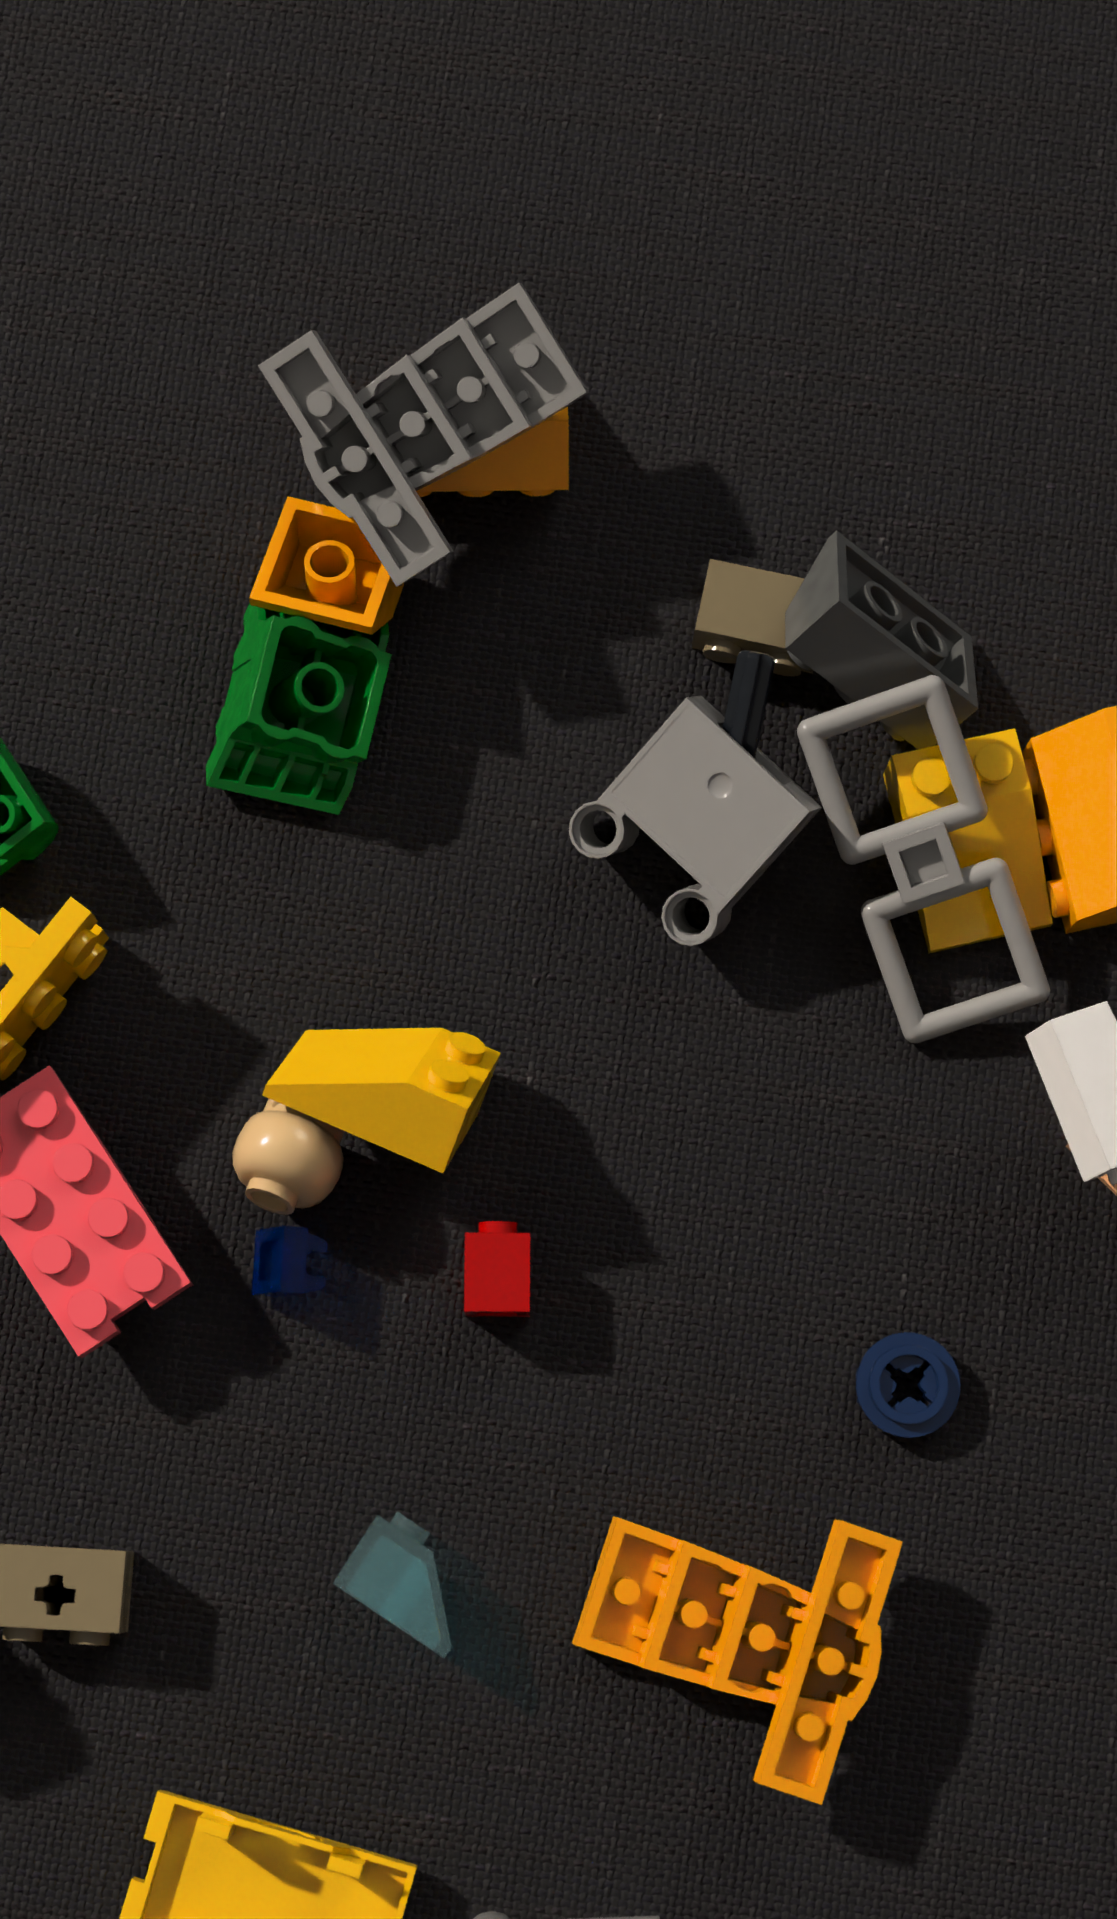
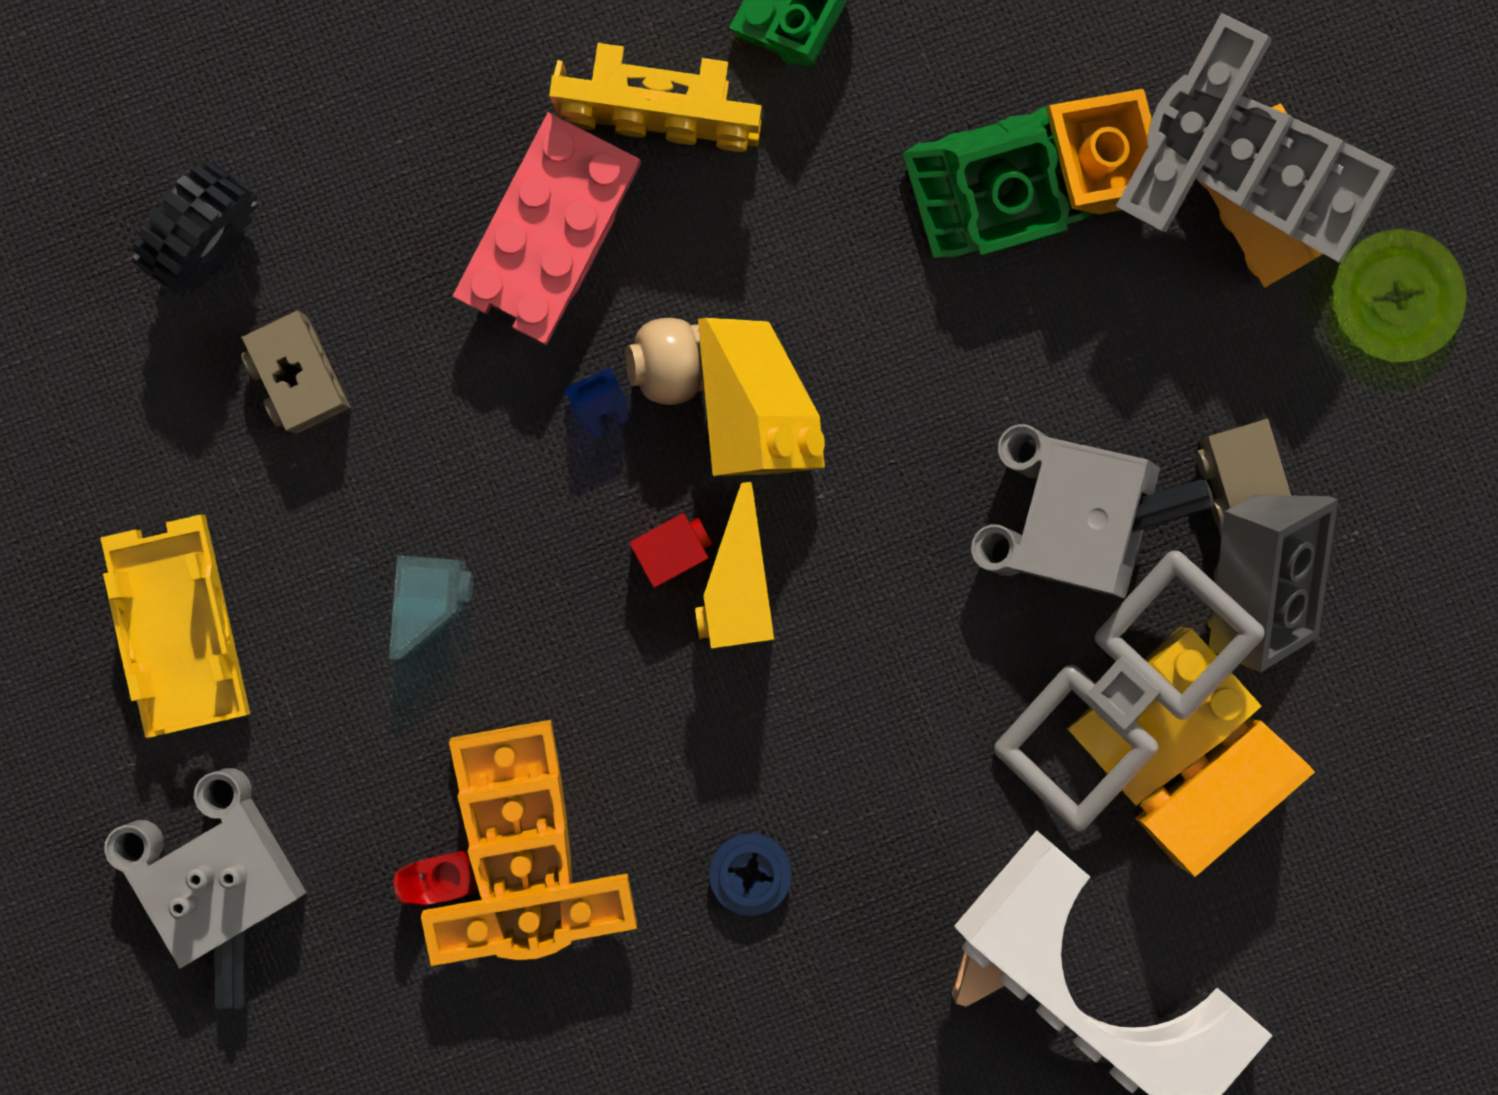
camera: 65 degrees right, 10 degrees up
(581, 1217) = (737, 590): none -> yellow slope
(631, 330) = (1416, 265): none -> clear neon green gear
(725, 1747) = (435, 879): none -> red hair

